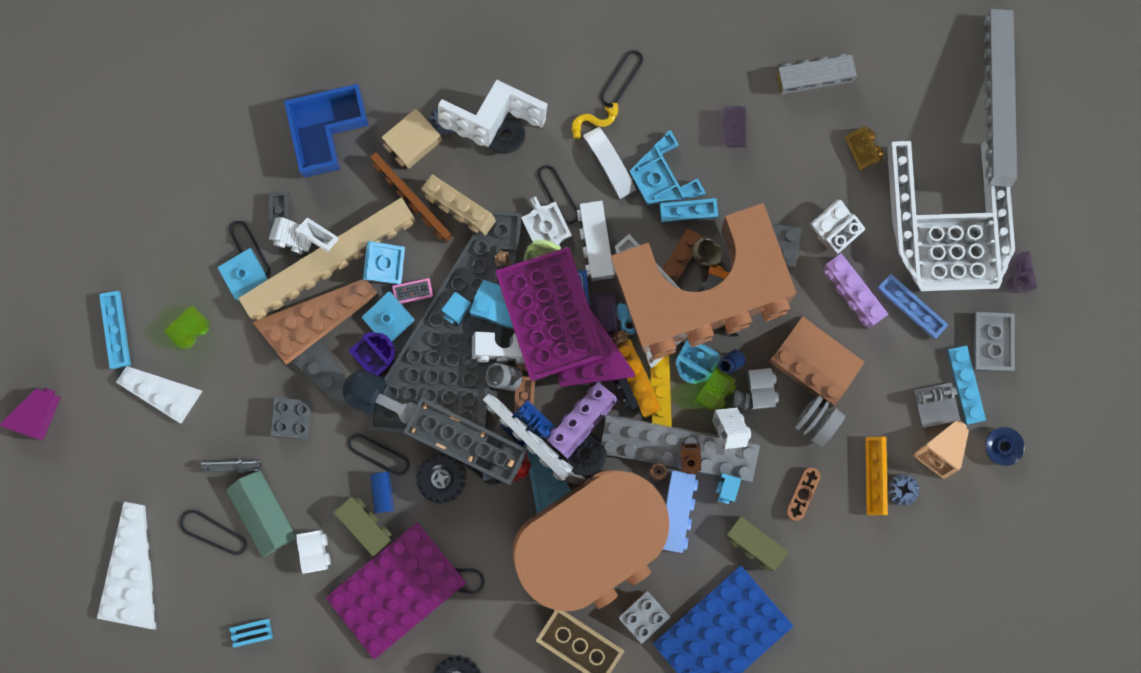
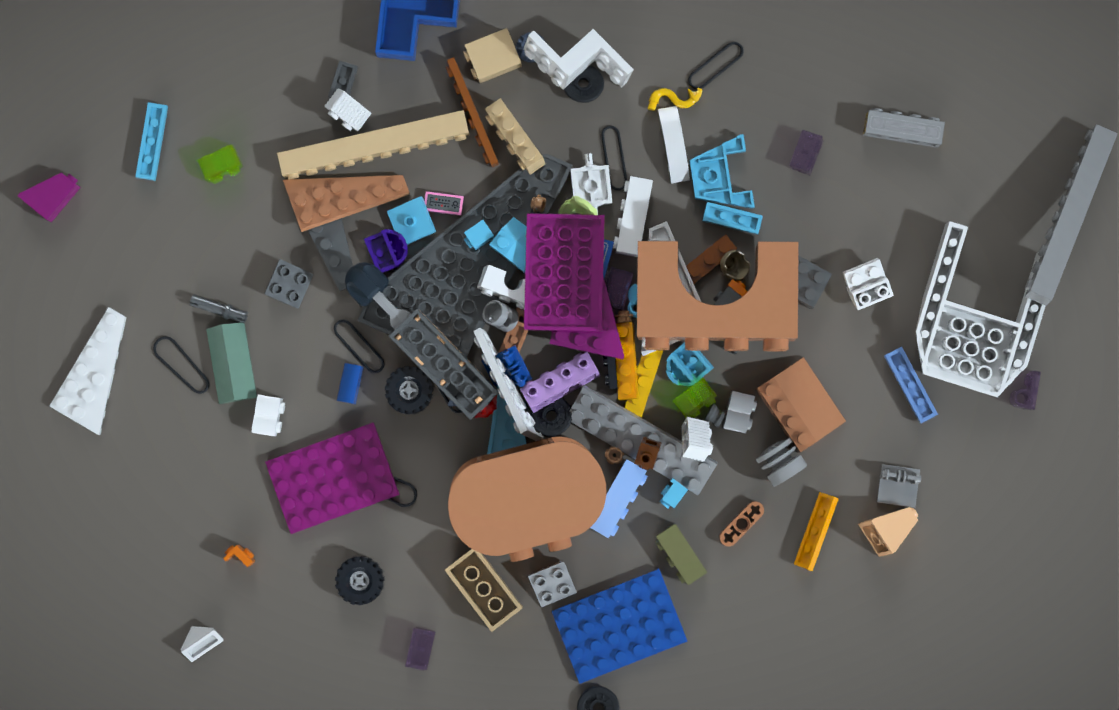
camera: 20 degrees right, 5 degrees up
(165, 395) = (178, 219): white wing -> none
(234, 636) = (169, 469): medium azure tile -> none
(243, 273) = (289, 130): medium azure plate -> none
(253, 240) = (310, 106): black piece -> none
(317, 234) = (371, 119): white slope -> none
(364, 525) = (323, 408): olive brick -> none
(383, 263) = (425, 167): medium azure plate -> none
(731, 361) = (719, 376): dark blue brick -> none
(854, 291) = (861, 351): lavender brick -> none
(864, 147) = (923, 216): pearl gold bracket -> none
(895, 493) = (827, 553): sand blue gear -> none
(966, 385) = (933, 476): medium azure plate -> none
(994, 341) = (975, 445): light grey plate -> none
(1013, 442) = (956, 549): dark blue dish -> none

